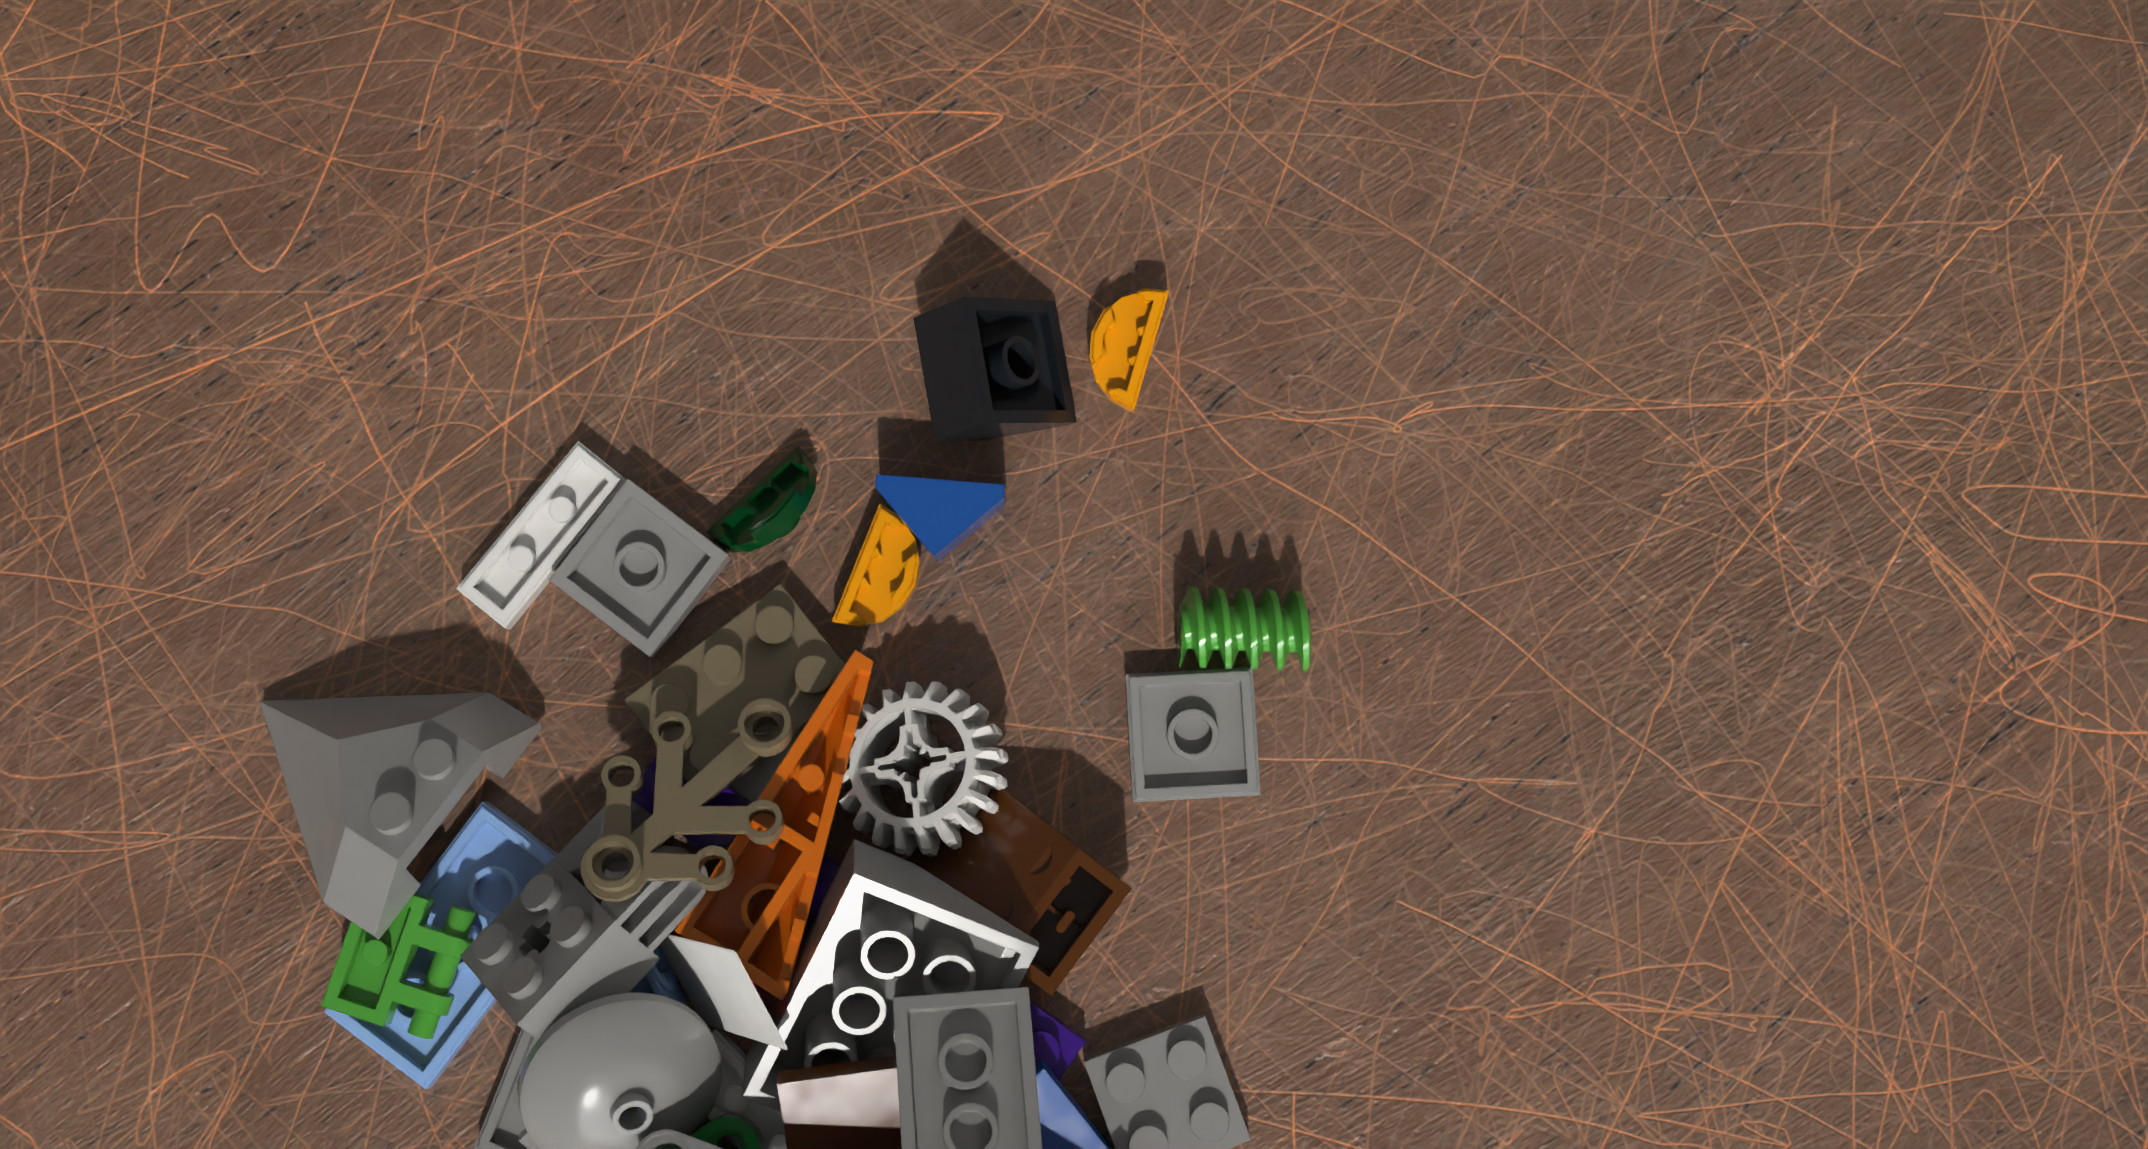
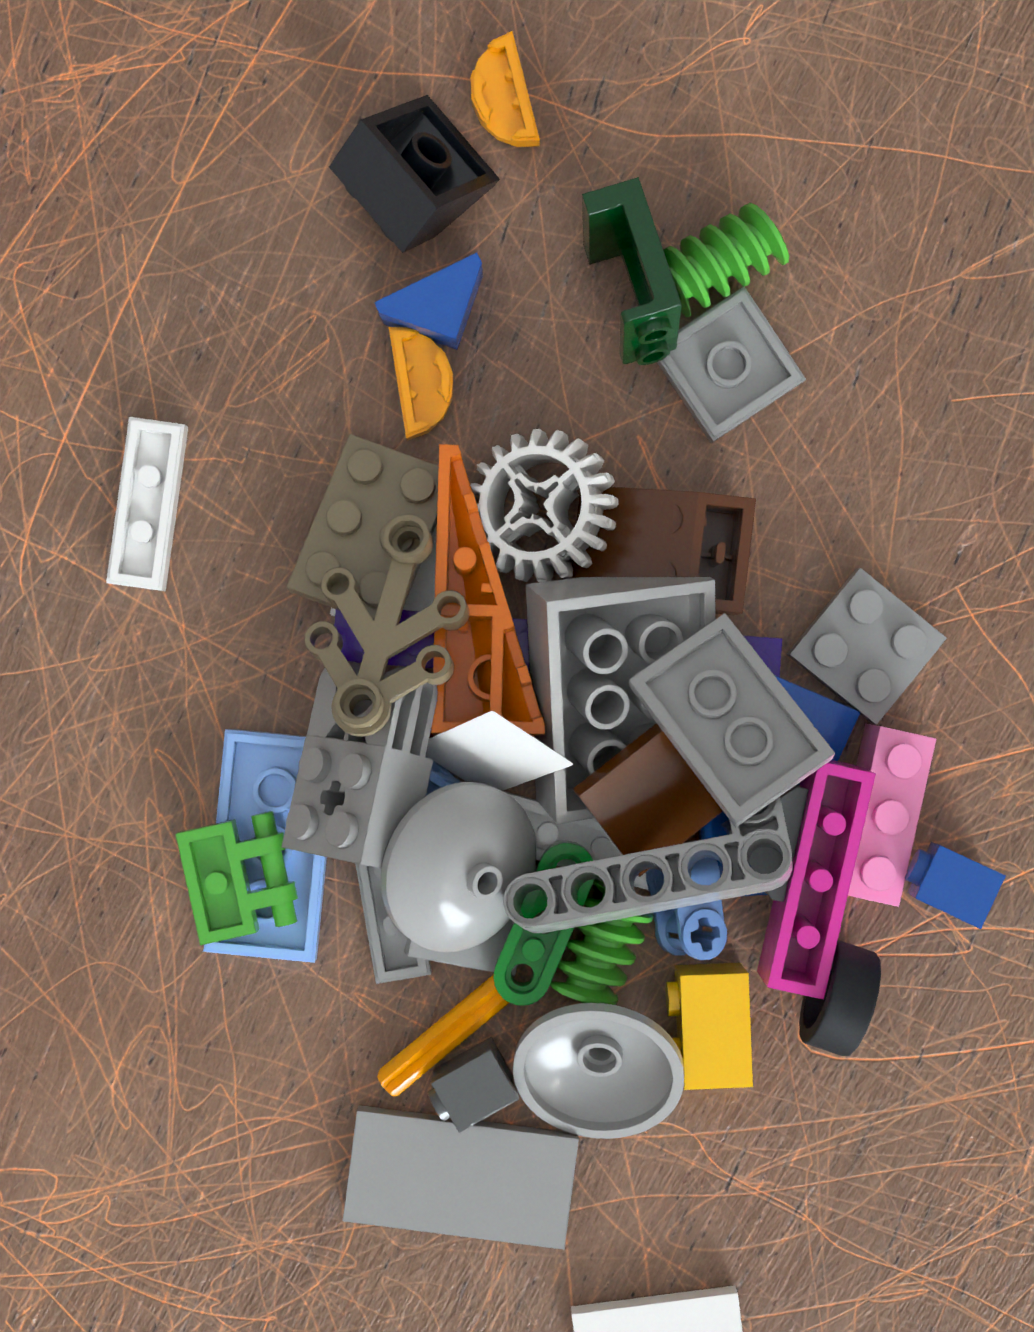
camera: 20 degrees left, 5 degrees up
(380, 780) = (143, 755): light grey wedge -> none
(640, 568) = (236, 484): light grey plate -> none
(769, 507) = (305, 382): dark green plate -> none
(1155, 536) = (621, 225): none -> dark green panel

